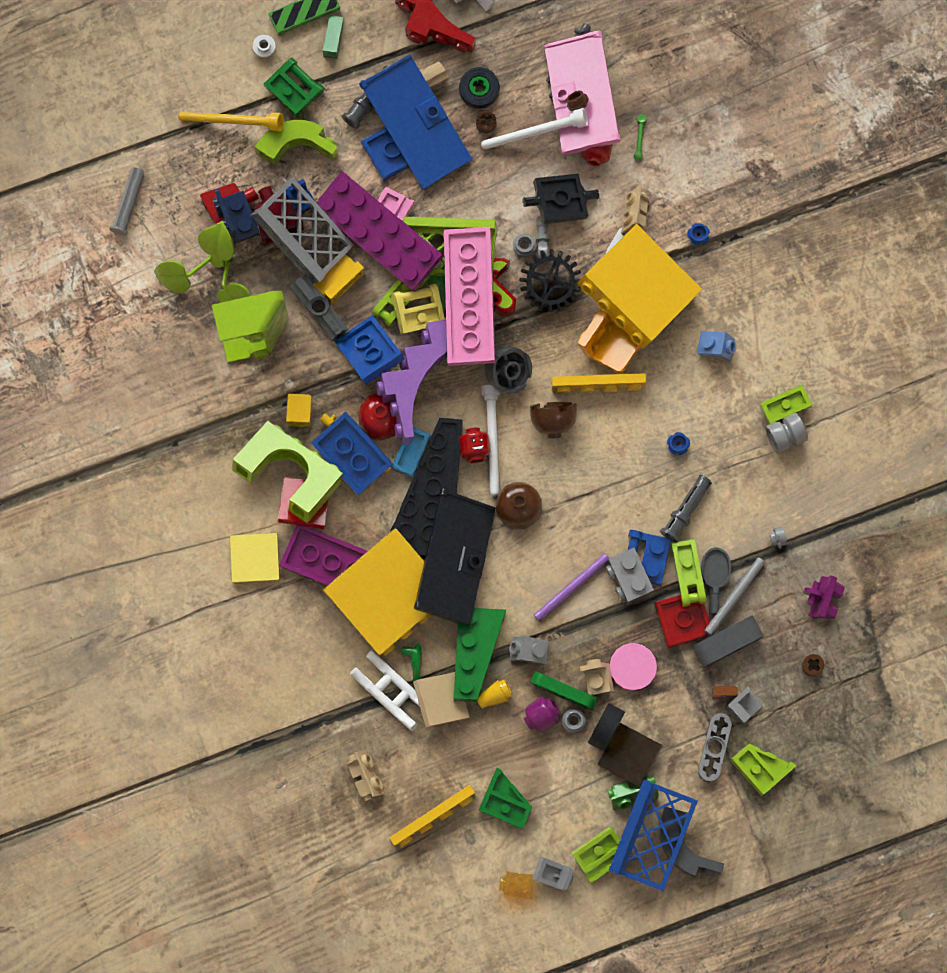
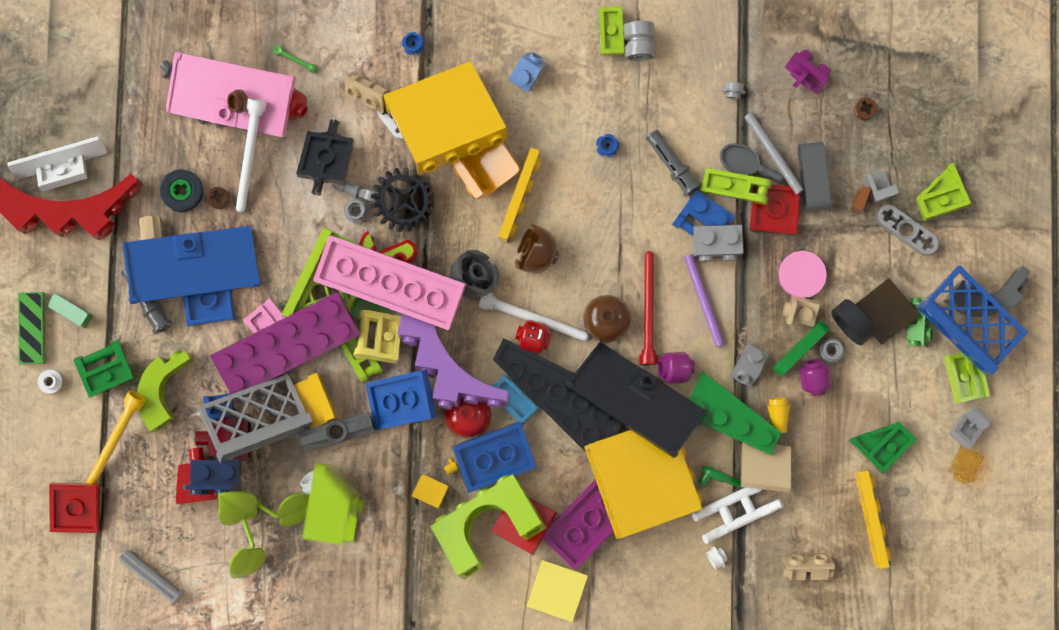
camera: 65 degrees left, 5 degrees up
(162, 111) = (74, 507): none -> red tile
(341, 689) = (716, 557): none -> white plate
(499, 584) = (676, 367): none -> magenta head
(501, 555) = (648, 355): none -> red piece

